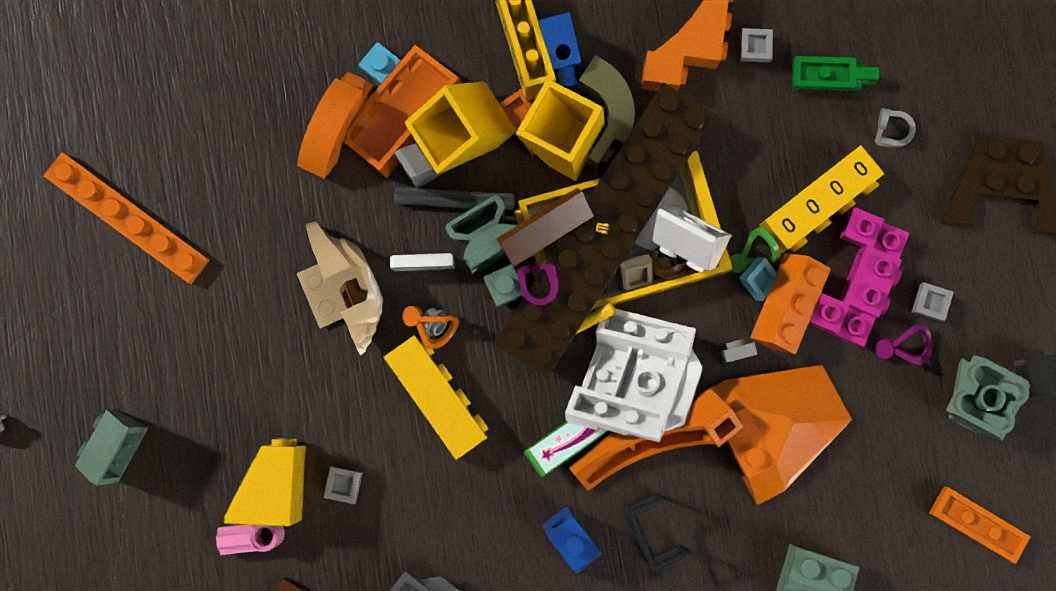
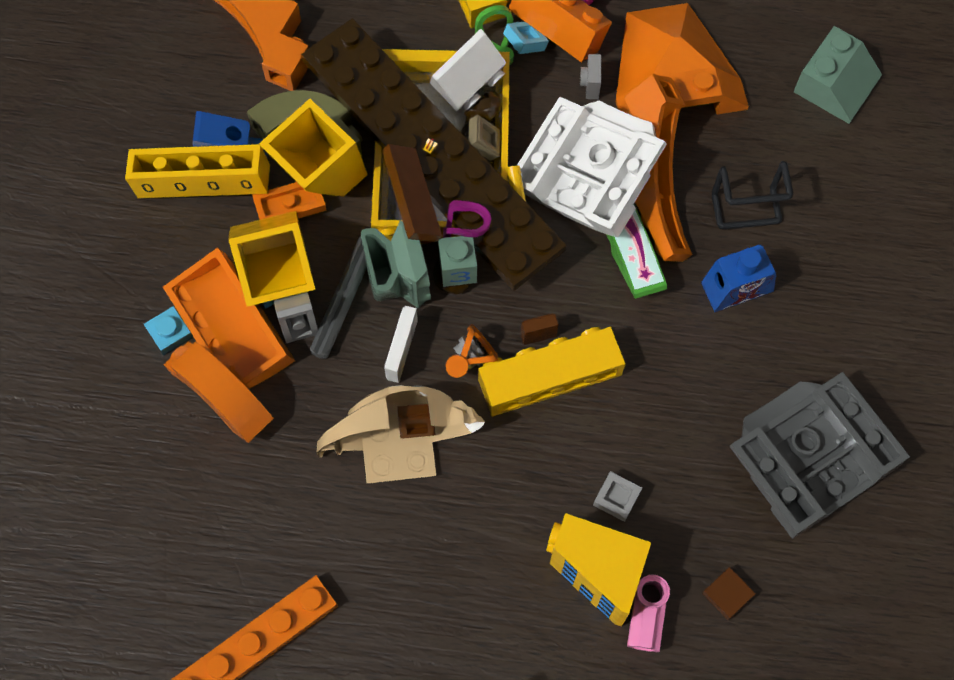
camera: 75 degrees left, 15 degrees down
(472, 375) = (539, 329): none -> reddish brown tile

